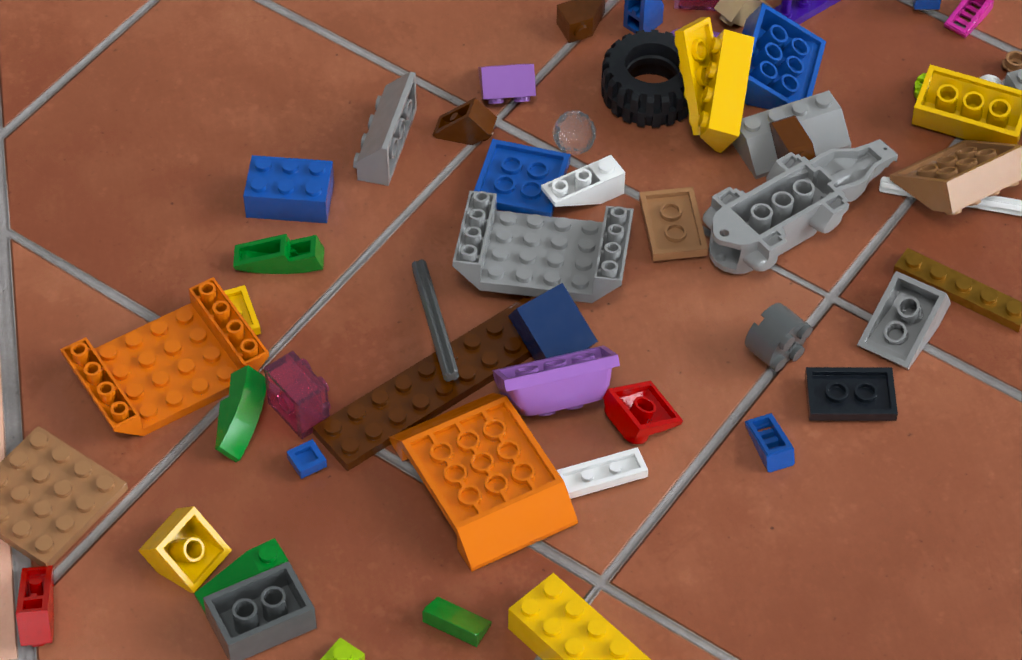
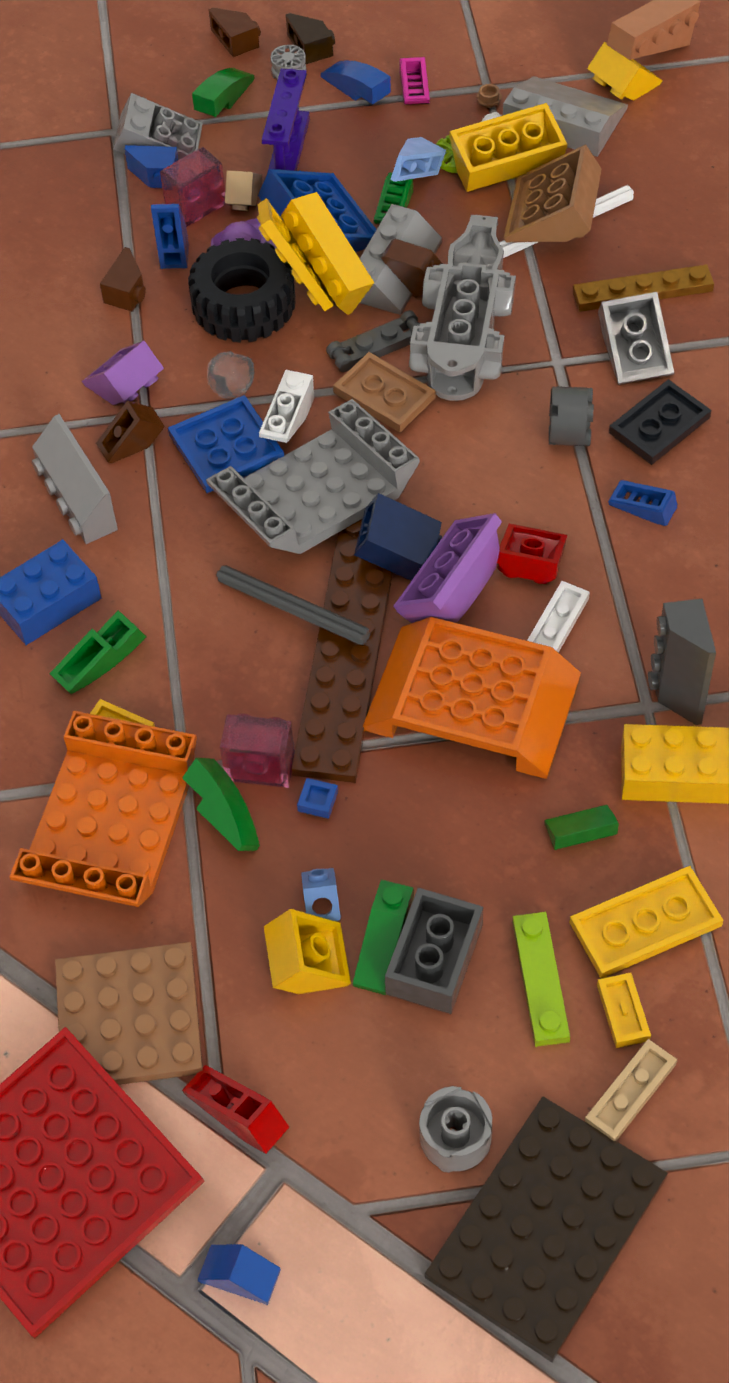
camera: 40 degrees left, 5 degrees up
(239, 513) = (321, 884): none -> medium blue bracket
(637, 555) = (683, 659): none -> dark grey slope
(704, 183) = (377, 341): none -> dark grey plate
(858, 81) = (402, 188): none -> green slope
(888, 70) = (418, 159): none -> light blue slope

